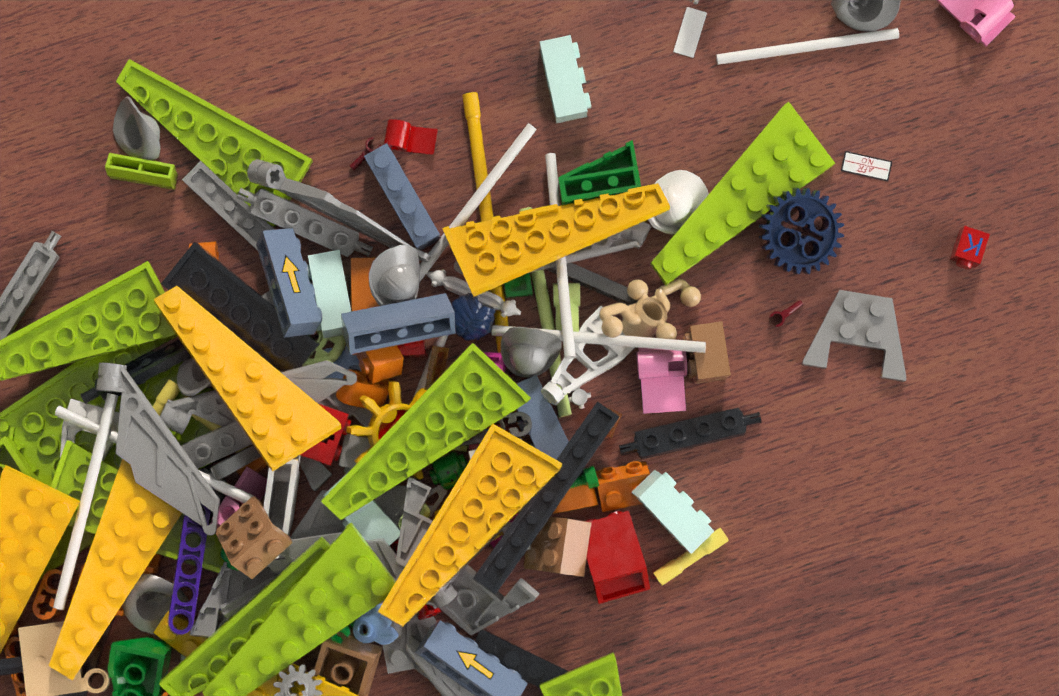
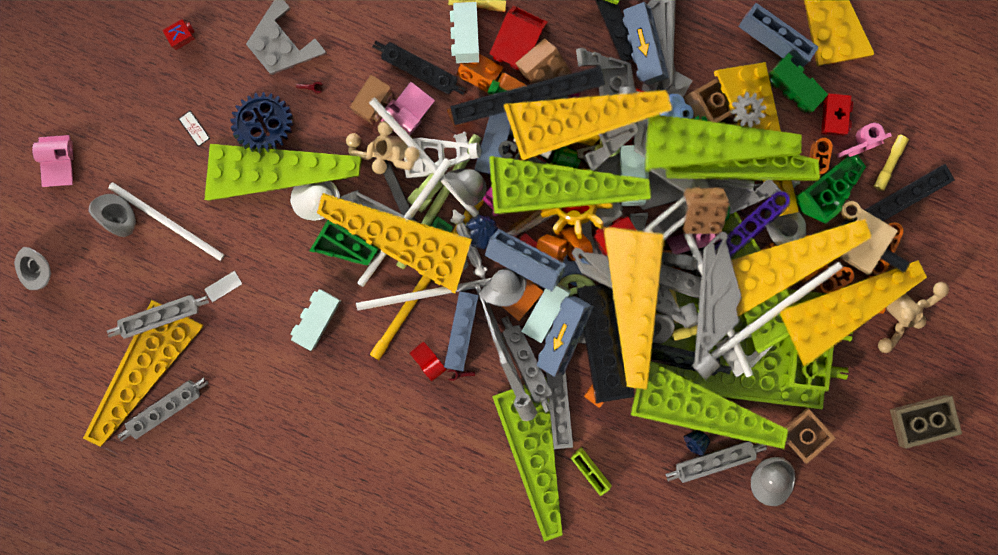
camera: 140 degrees left, 5 degrees up
(55, 296) = (697, 442): none -> dark blue piece
(136, 132) = (575, 496): light grey hat -> none

